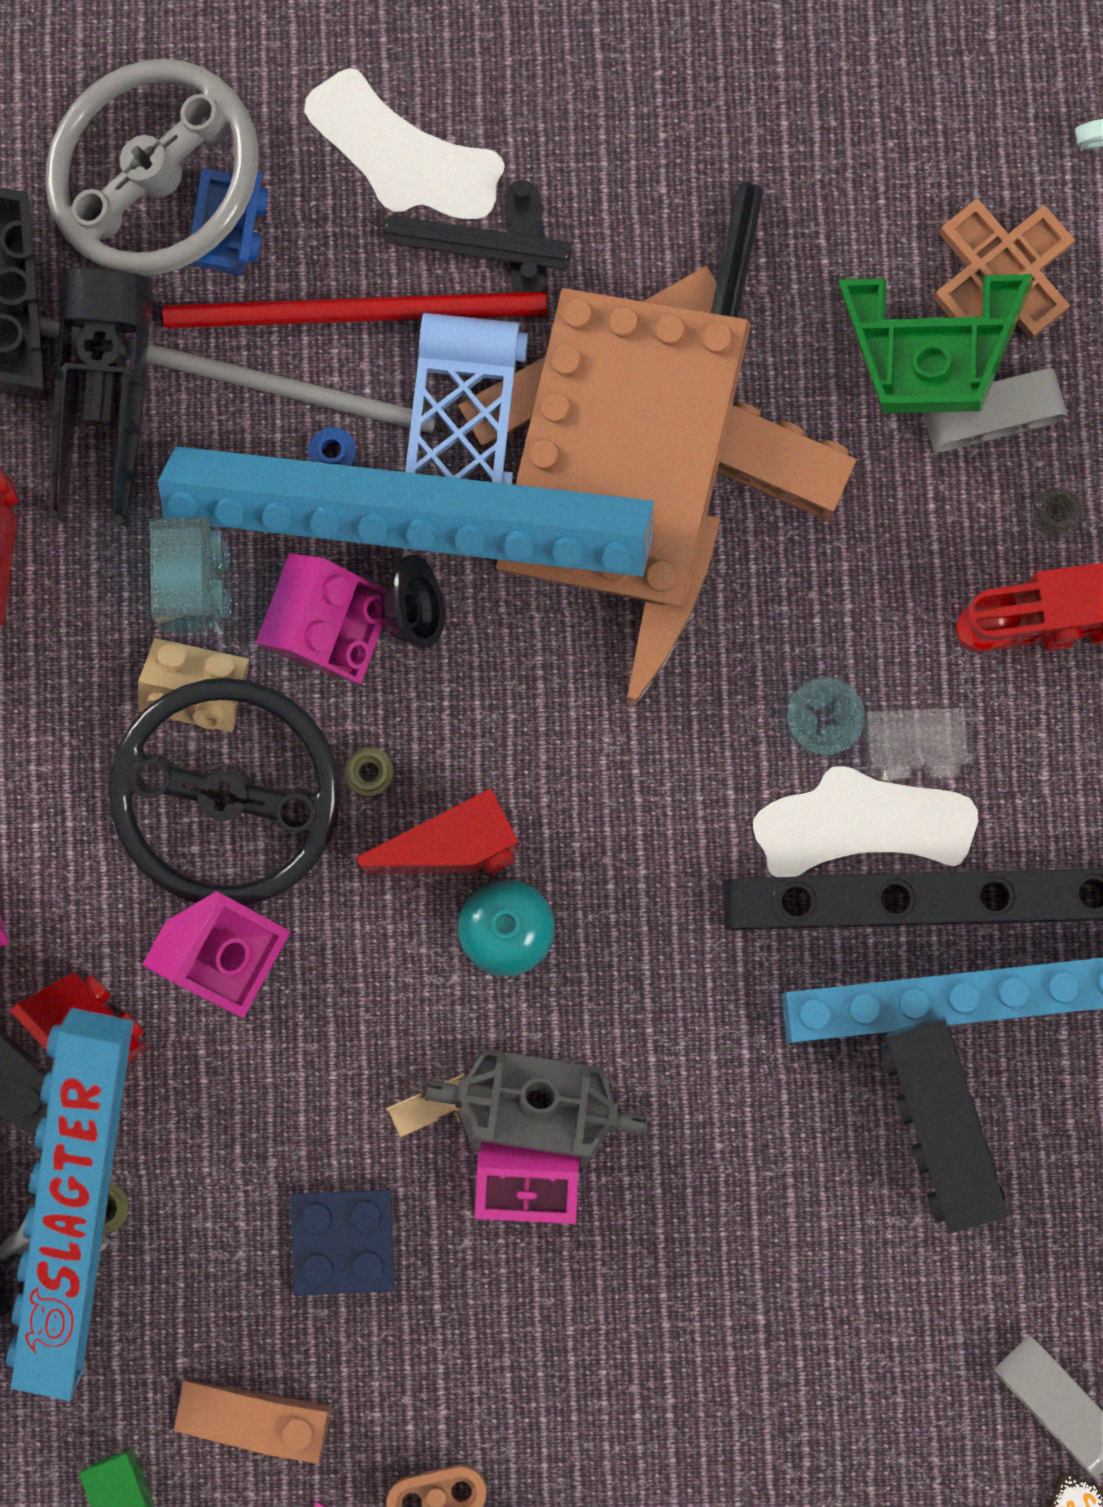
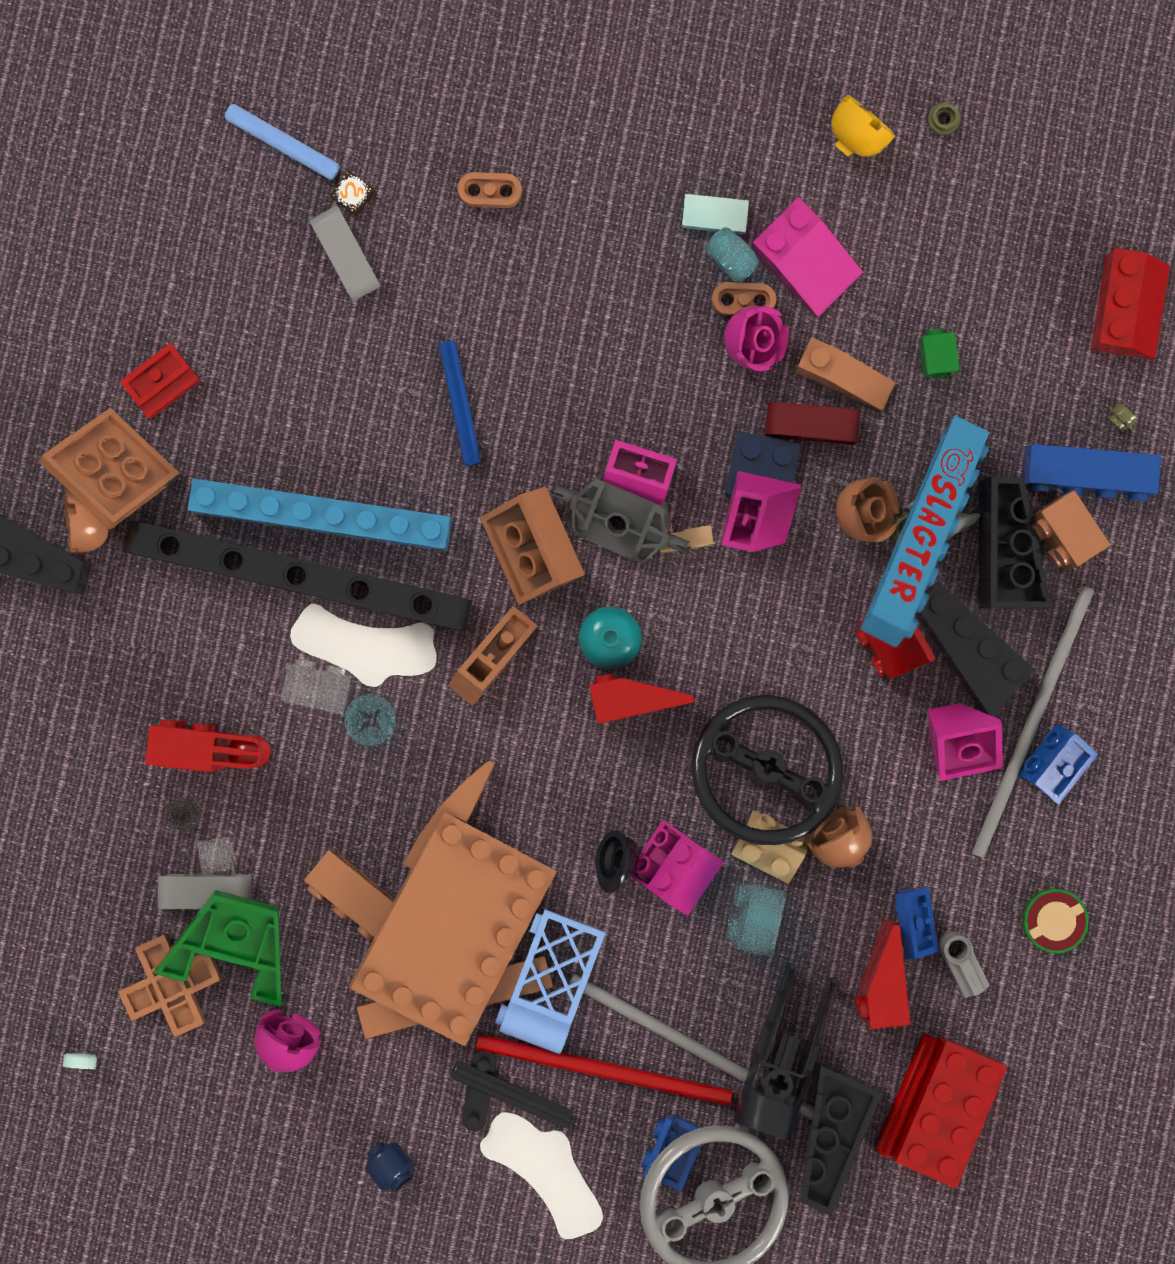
camera: 160 degrees left, 5 degrees up
(91, 720) = (841, 838): none -> nougat cylinder
(168, 1219) = (867, 509): none -> nougat cylinder
(218, 951) = (797, 669): dark pink slope -> none
(284, 1332) = (812, 423): none -> dark red beam
(331, 1171) = (759, 512): none -> dark pink slope
(332, 435) = (650, 969): blue plate -> none
(361, 758) = (682, 760): olive plate -> none
(402, 1440) = (756, 337): none -> dark pink cylinder
(409, 510) = (604, 920): dark azure brick -> none
(623, 100) = (389, 1166): none -> dark blue head
(657, 1034) = (532, 545): none -> nougat slope
(672, 856) = (492, 655): none -> nougat slope
(737, 250) = (343, 1041): black axle -> none
(817, 232) = (286, 1042): none -> dark pink cylinder
(824, 1222) = (459, 403): none -> blue axle
(946, 1125) = (369, 439): black wedge -> none
(991, 467) = (216, 855): none -> clear plate

